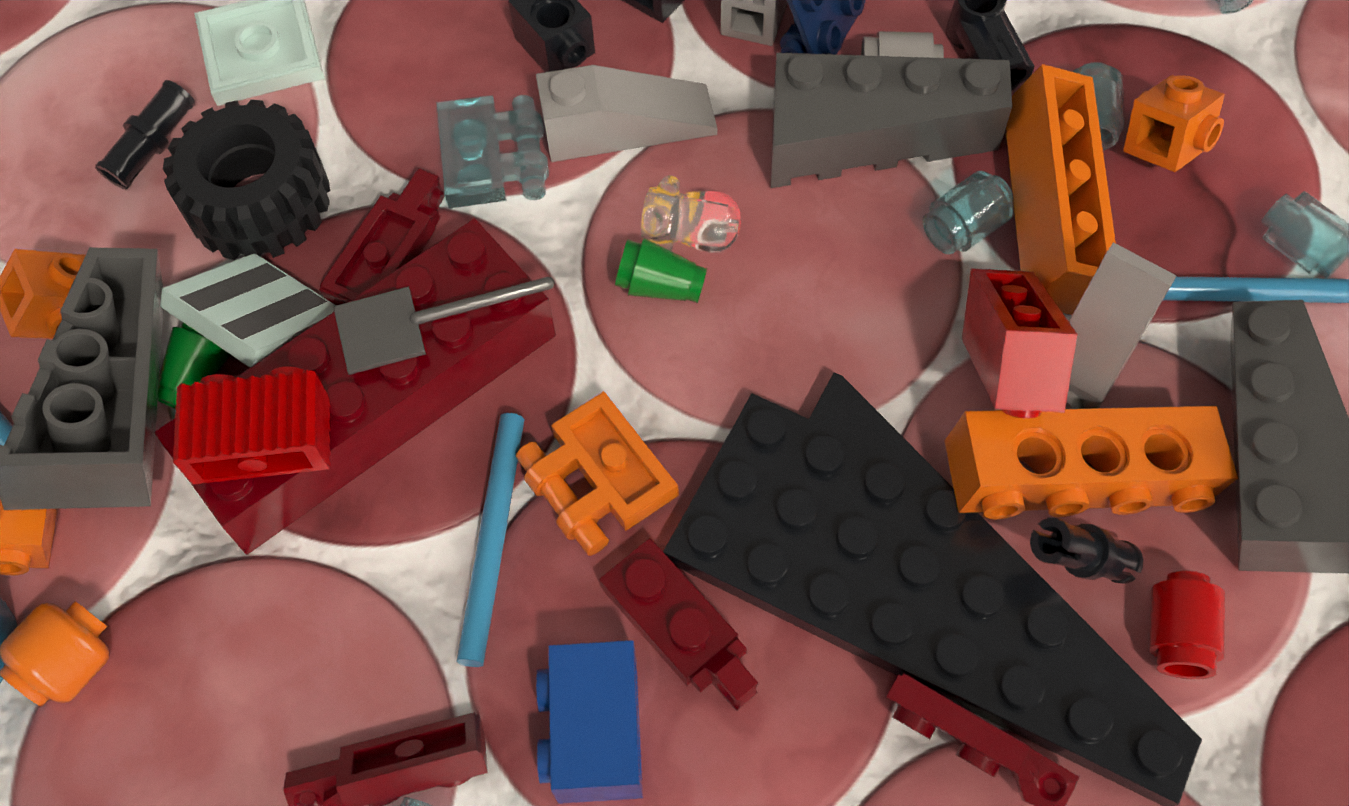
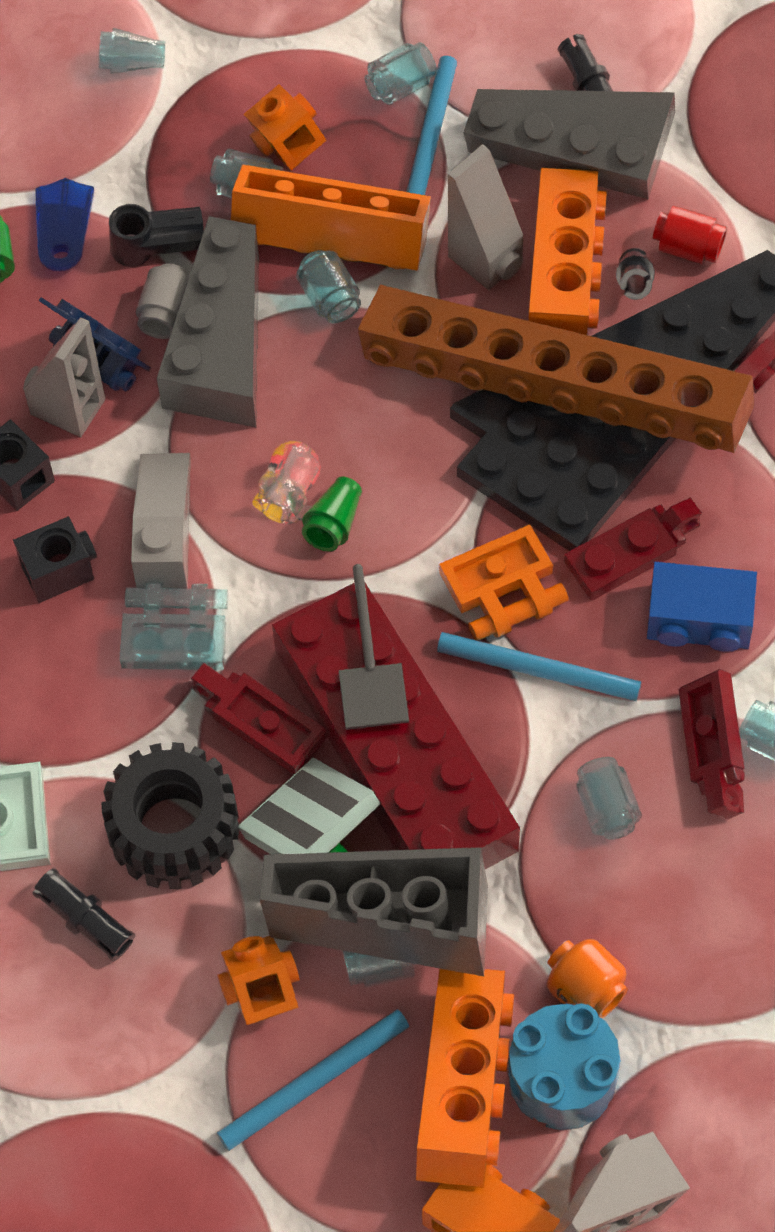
camera: 80 degrees left, 0 degrees up
(252, 426) = (456, 777): red brick -> none
(299, 641) = (608, 798): none -> clear light blue brick
(917, 372) = (558, 368): none -> dark orange brick
(1018, 342) = (476, 264): red brick -> none

